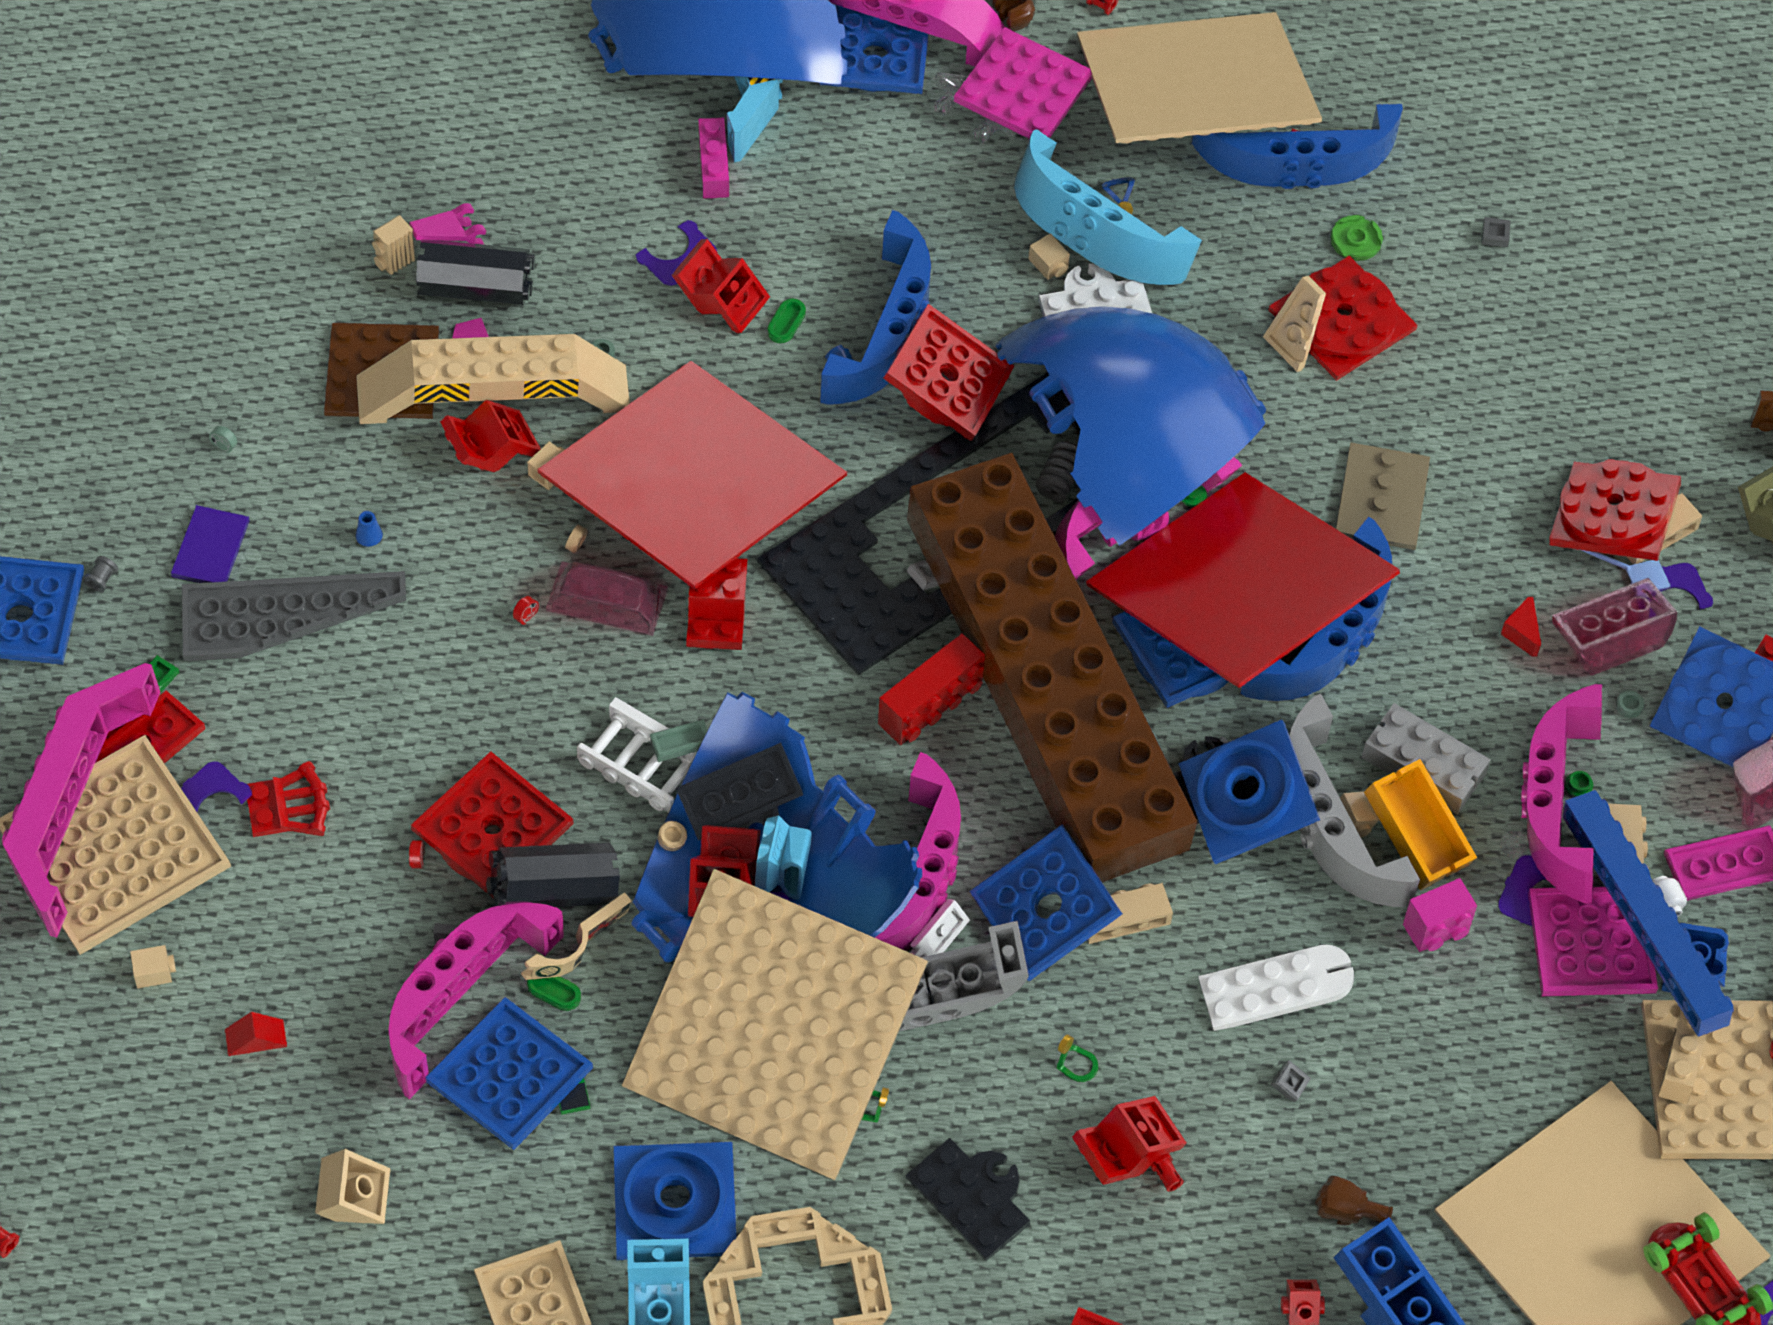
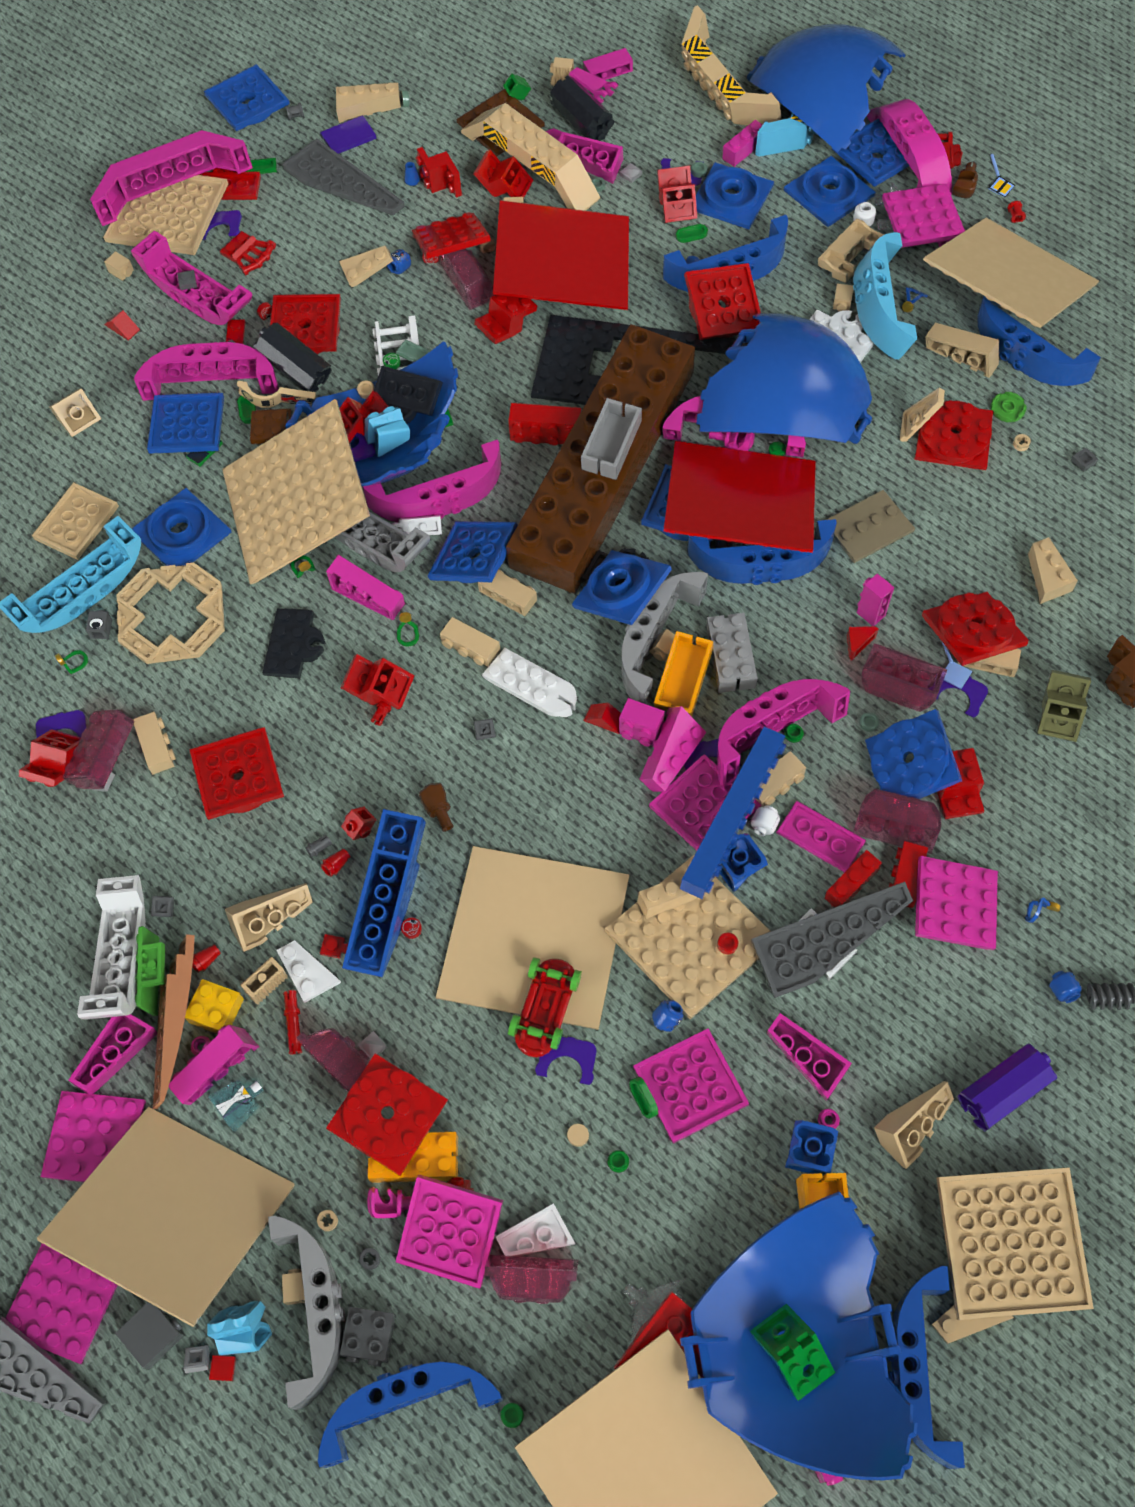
camera: 55 degrees right, 5 degrees up
(178, 483) = (366, 100): none -> tan wedge
(290, 900) = (187, 280): none -> dark grey plate
(305, 903) = (208, 300): none -> dark pink slope
(353, 307) = (517, 87): none -> green brick
(408, 496) = (438, 172): none -> red bracket
(413, 915) = (236, 331): none -> red plate
(425, 186) = (610, 64): none -> dark pink brick
(466, 690) = (365, 265): none -> tan wing
(498, 650) = (400, 262): none -> blue head
(527, 563) = (450, 235): none -> red plate
(575, 311) = (596, 156): none -> dark pink wedge
(592, 102) = (721, 86): none -> tan slope
(622, 979) = (268, 424): none -> reddish brown bracket
(623, 304) = (630, 173): none -> light grey tile
(661, 775) = (391, 360): none -> green tile
(696, 231) = (699, 169): none -> sand green tile
(798, 251) = (732, 208): none -> blue piece
(890, 160) = (825, 203): none -> blue piece
(954, 137) = (865, 212): none -> white head
(978, 1057) = (364, 588): none -> dark pink wedge
(981, 171) = (846, 248): none -> tan bracket
(1077, 634) = (611, 439): none -> light grey piece
(1159, 1005) = (469, 642): none -> tan brick
(1242, 207) = (965, 347): none -> tan wedge
(1387, 948) = (604, 716): none -> red slope
(1419, 260) = (1021, 437): none -> tan bush
(1501, 568) = (875, 599): none -> dark pink brick
(1502, 915) = (674, 746): none -> dark pink wedge
(1607, 384) = (1050, 571): none -> tan wedge

